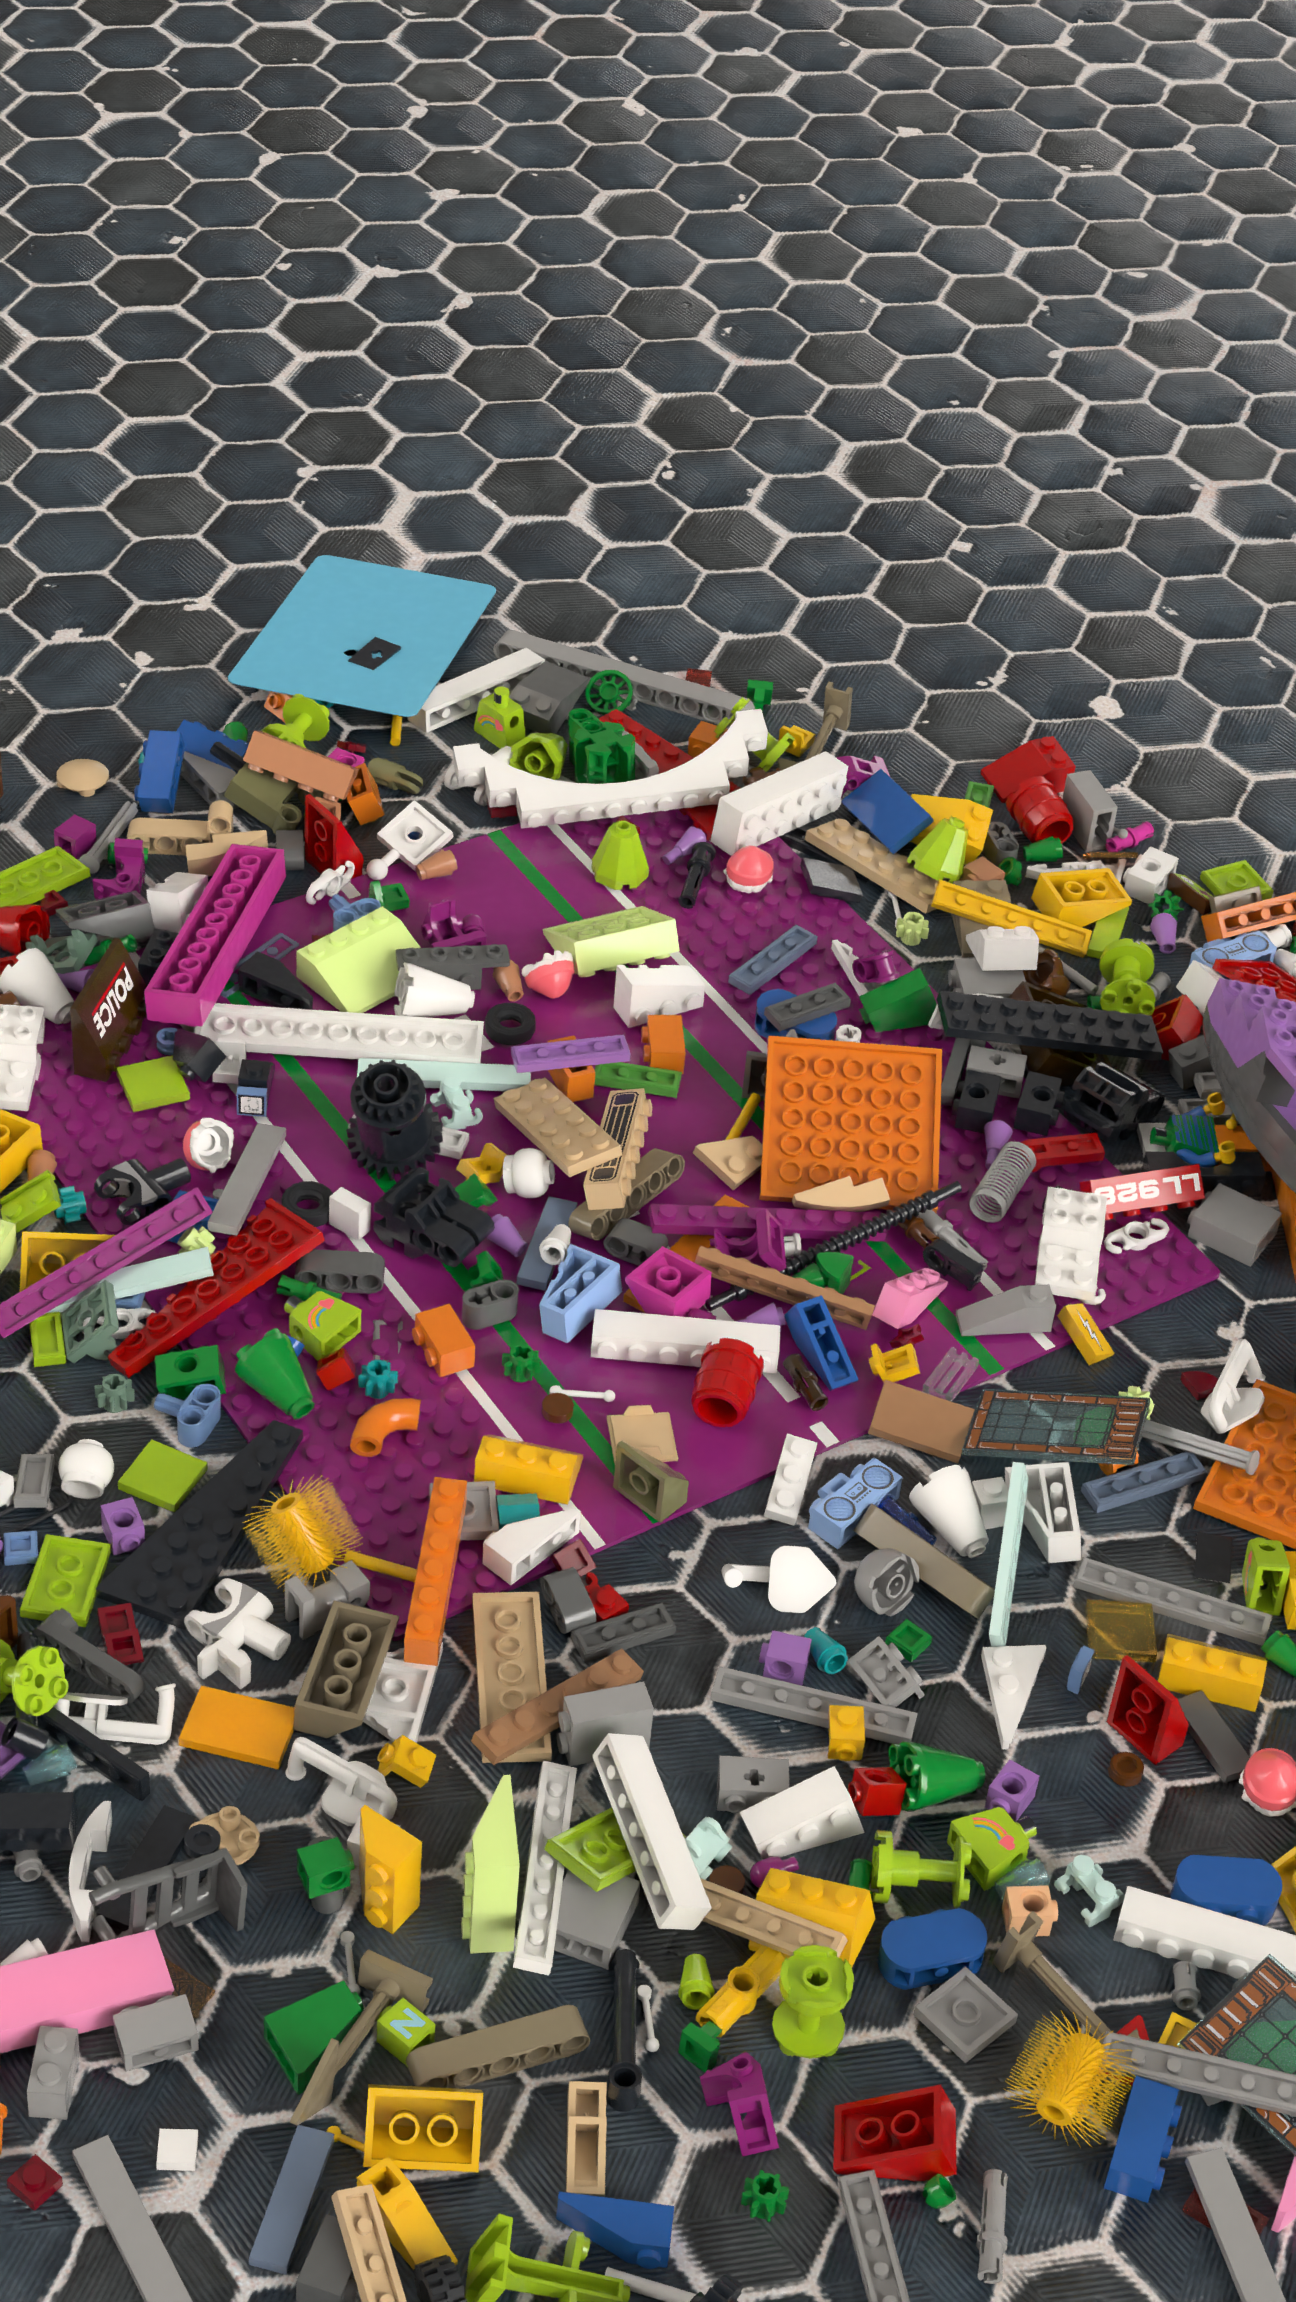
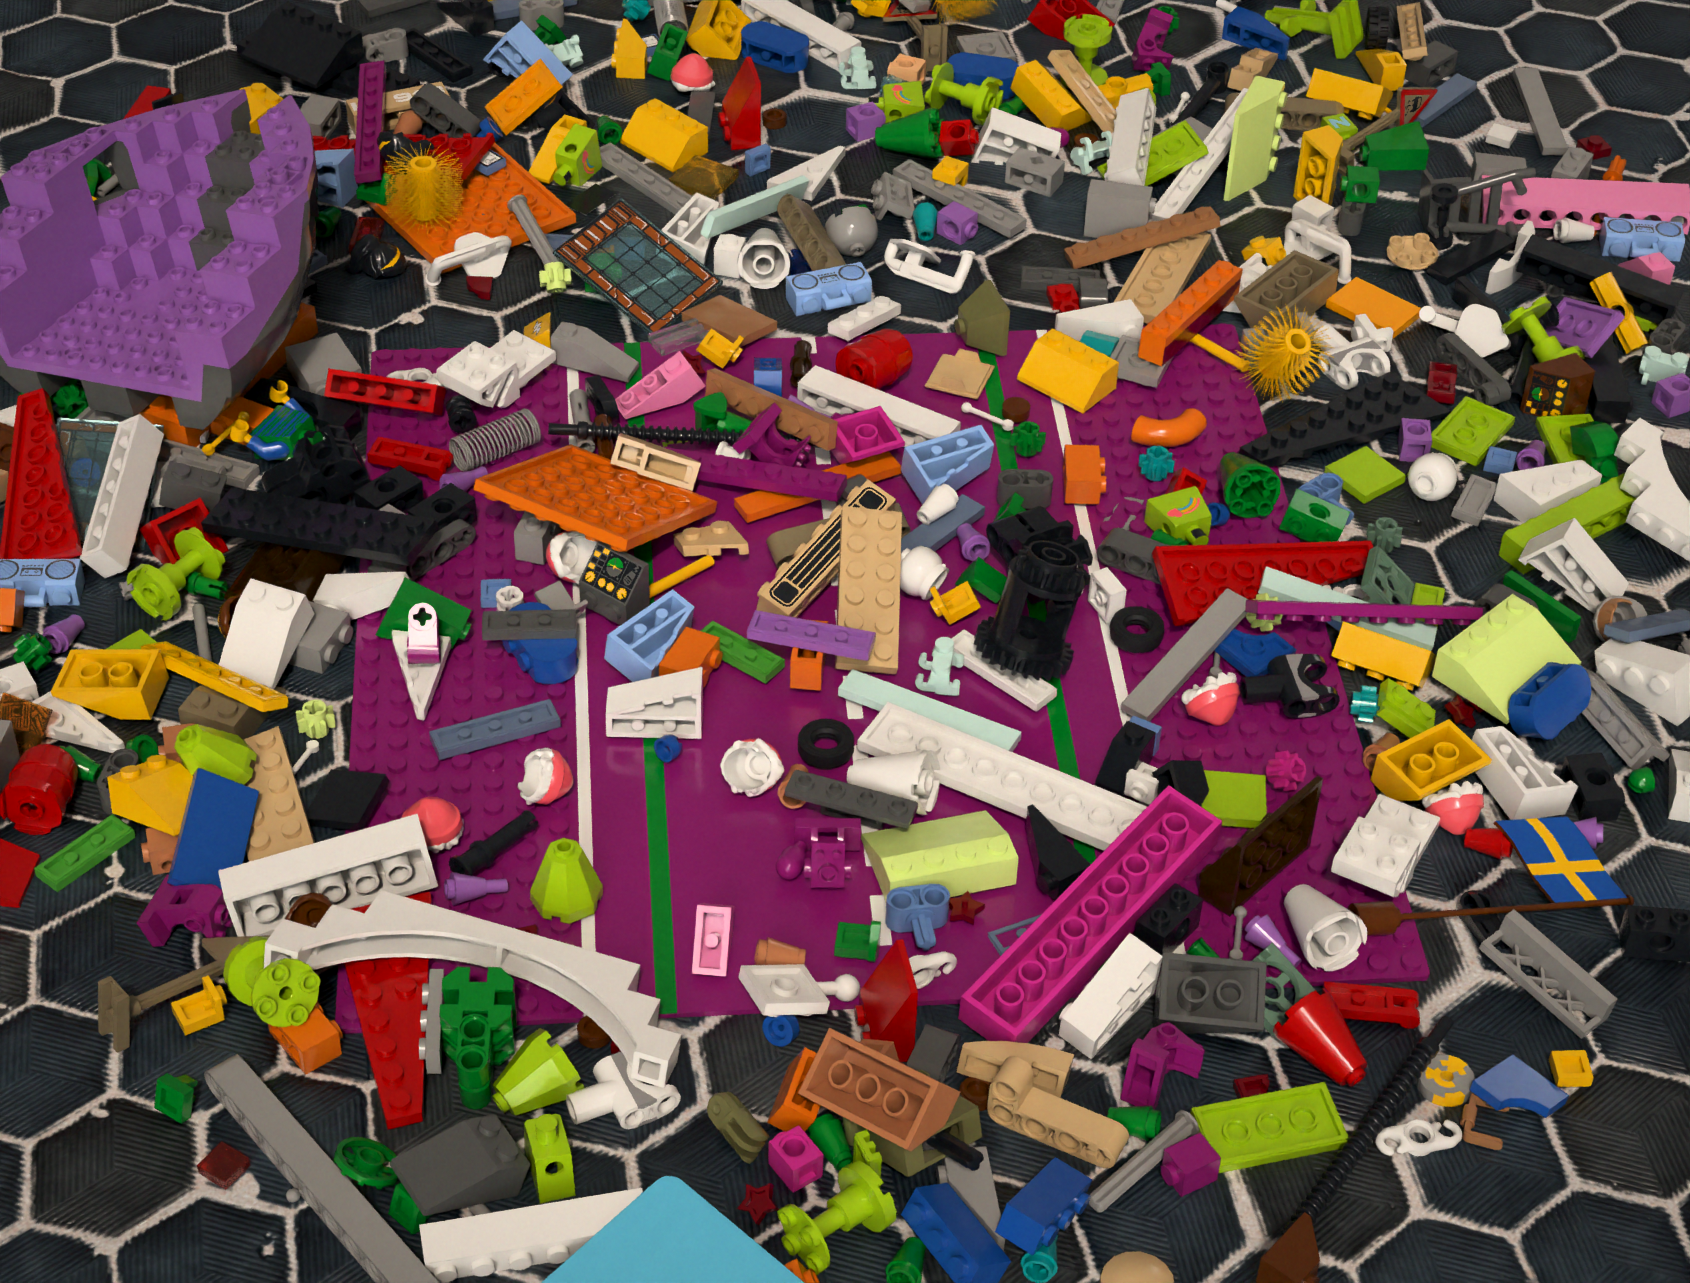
camera: 150 degrees left, 0 degrees up
(116, 1105) = (1285, 770): none -> dark pink gear
(492, 861) = (712, 939): none -> bright pink slope
(615, 939) = (650, 794): yellowish green slope -> none
(695, 920) = (545, 777): none -> white hair
(708, 1040) = (647, 637): none -> light blue wedge

